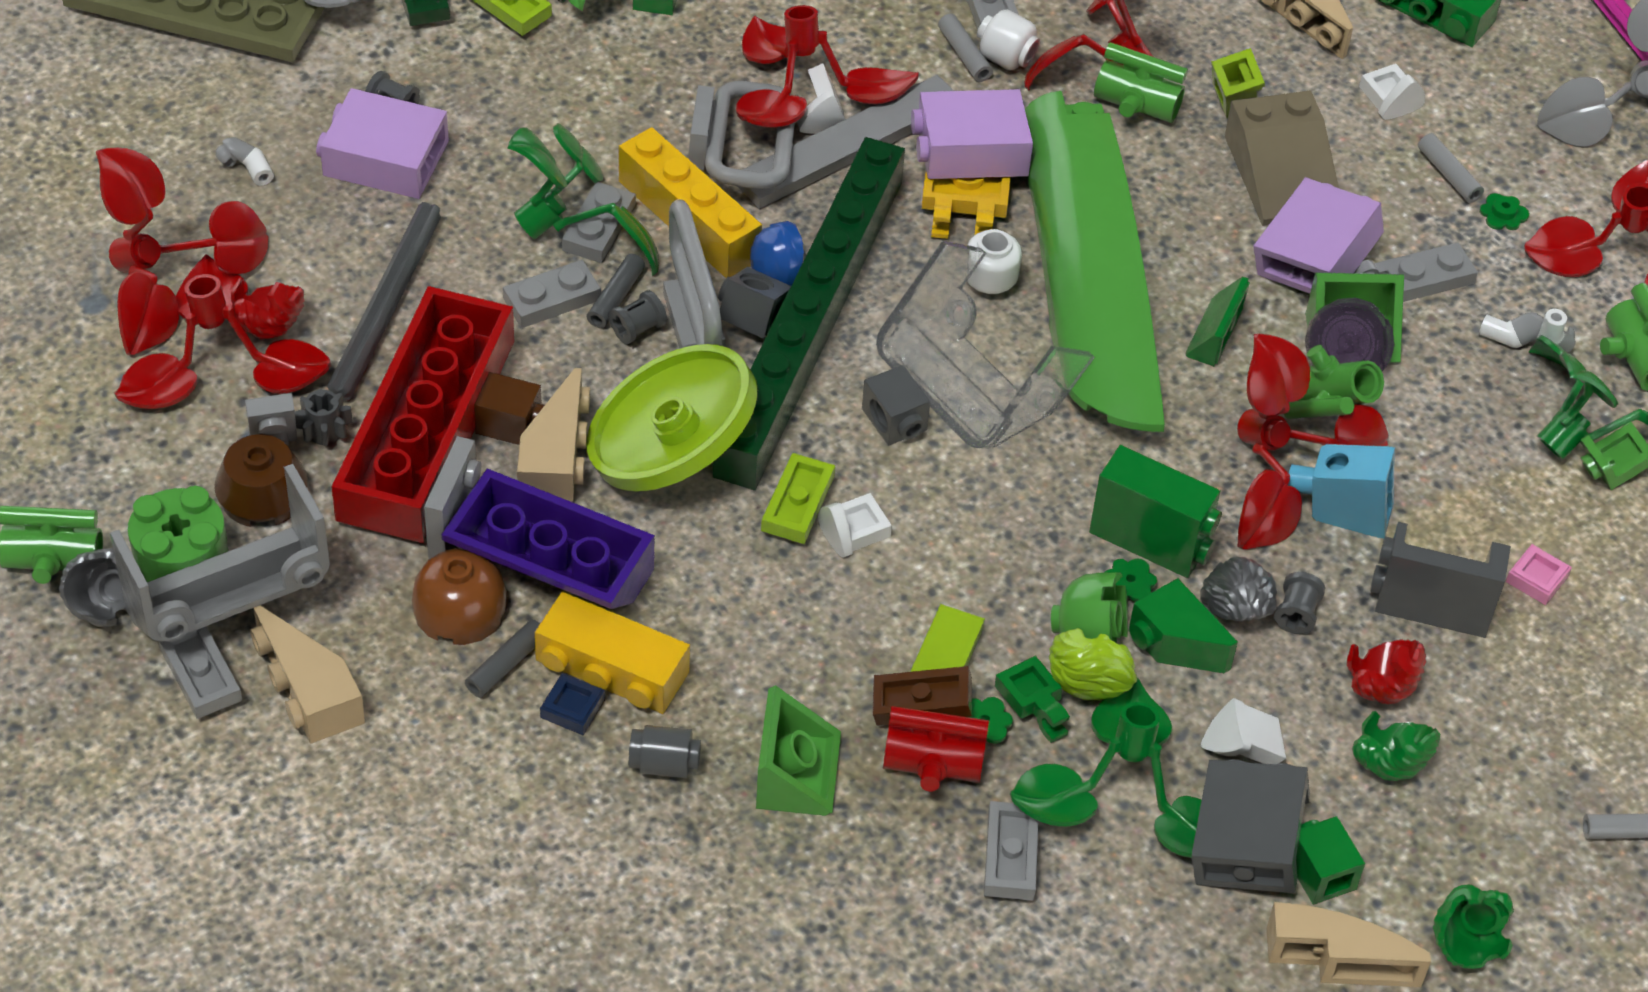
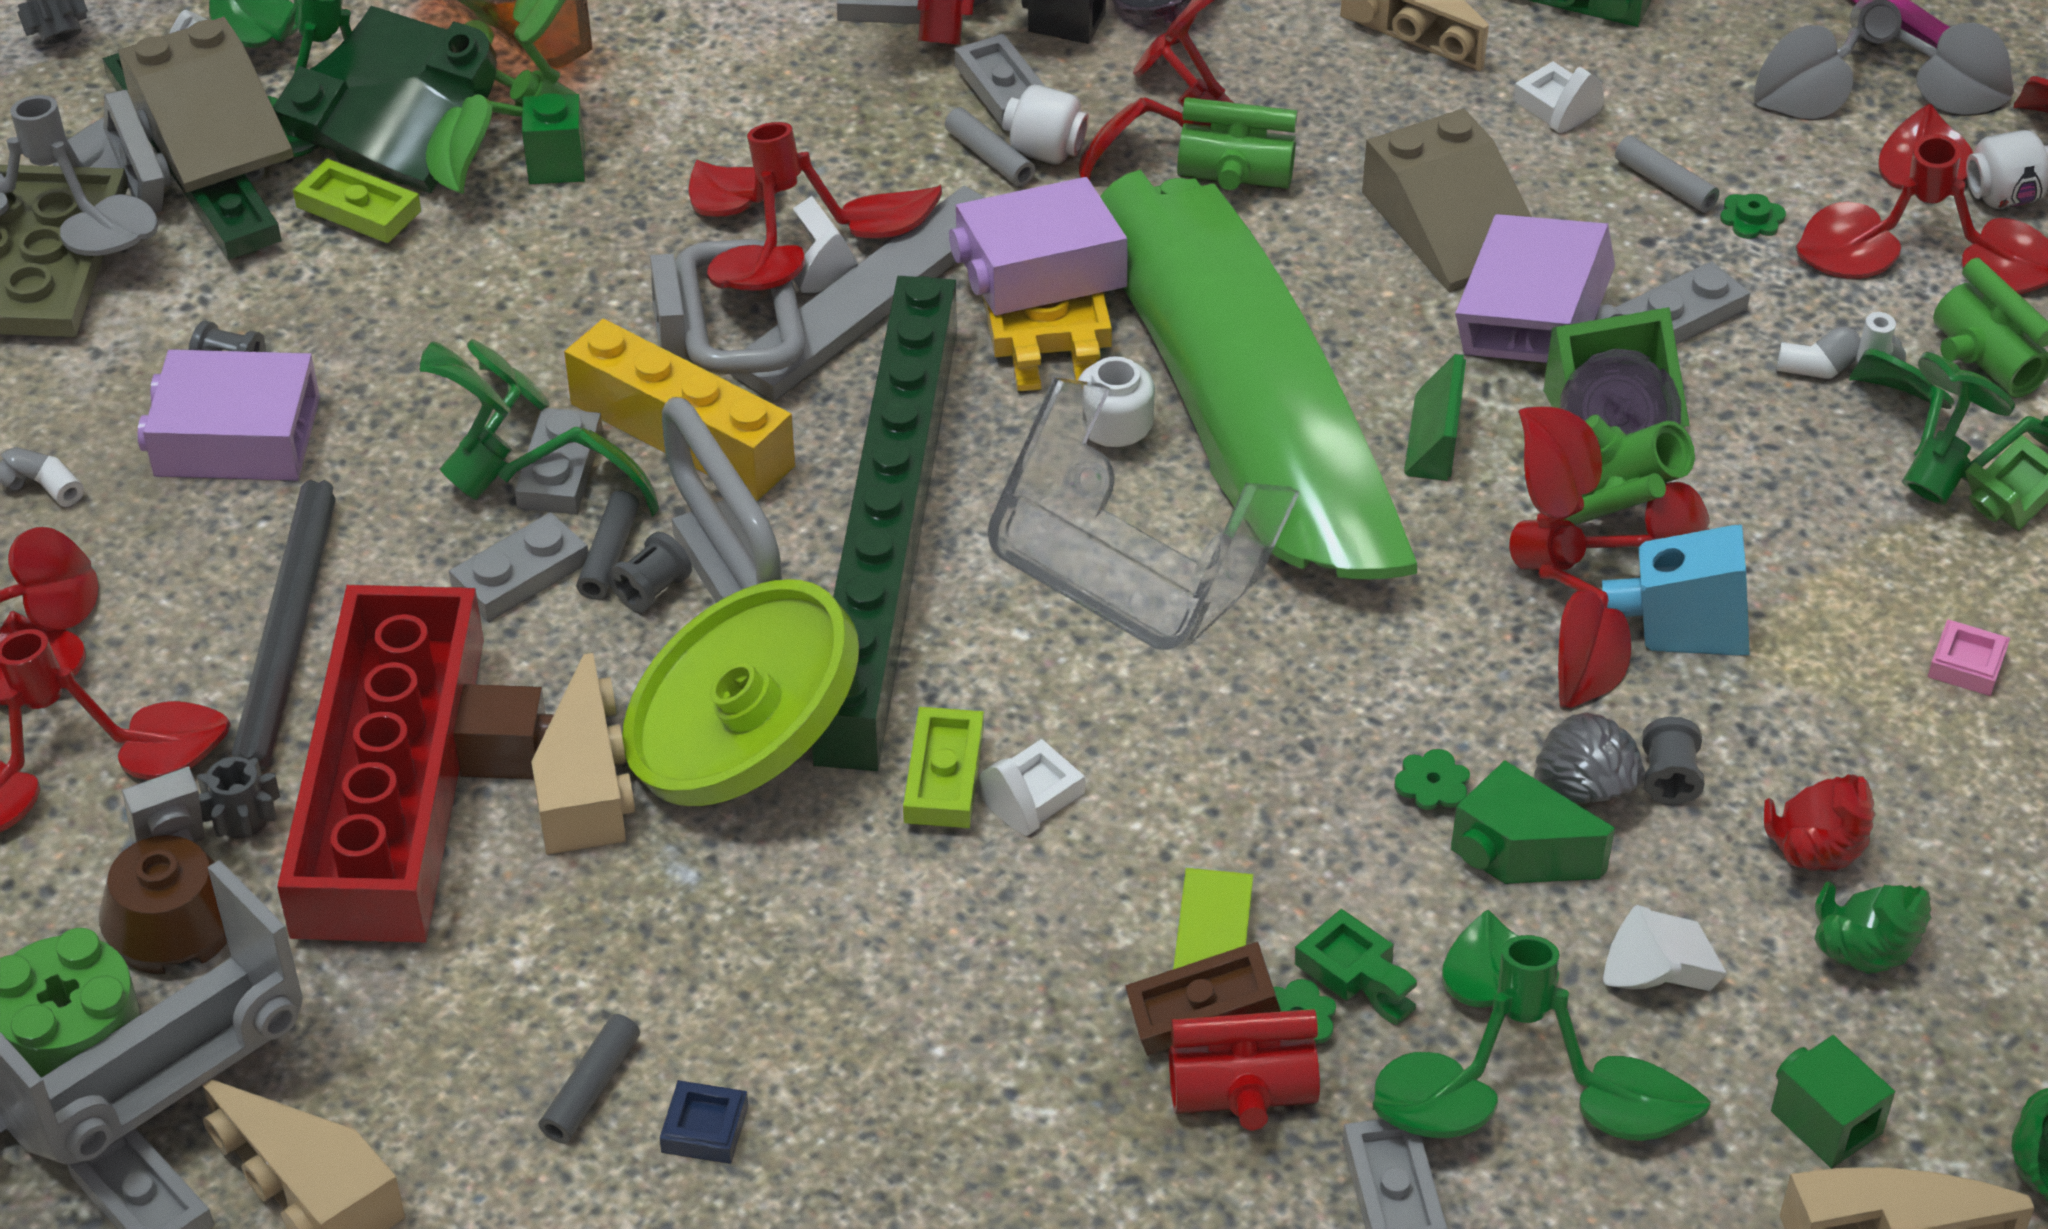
camera: 10 degrees left, 5 degrees down
(268, 309) = (121, 667): red hair -> none
(449, 492) = (458, 871): light grey plate -> none
(459, 597) = (499, 1005): dark orange cylinder -> none
(553, 540) = (617, 894): dark purple slope -> none
(612, 652) = (743, 1035): yellow brick -> none
(664, 751) = (858, 1158): dark grey brick -> none
(752, 300) = (808, 517): dark grey brick -> none
(778, 252) = (823, 452): blue piece -> none
(796, 758) = (1049, 1127): bright green slope -> none
(896, 405) = (1041, 615): dark grey brick -> none
(1091, 666) = (1425, 905): lime hair -> none
(1093, 606) = (1403, 841): bright green cylinder -> none
(1155, 512) = (1445, 679): green brick -> none
(1236, 78) = (1360, 112): lime brick -> none
(1250, 825) = (1719, 1076): dark grey panel -> none
(1439, 586) = (1854, 695): dark grey panel -> none

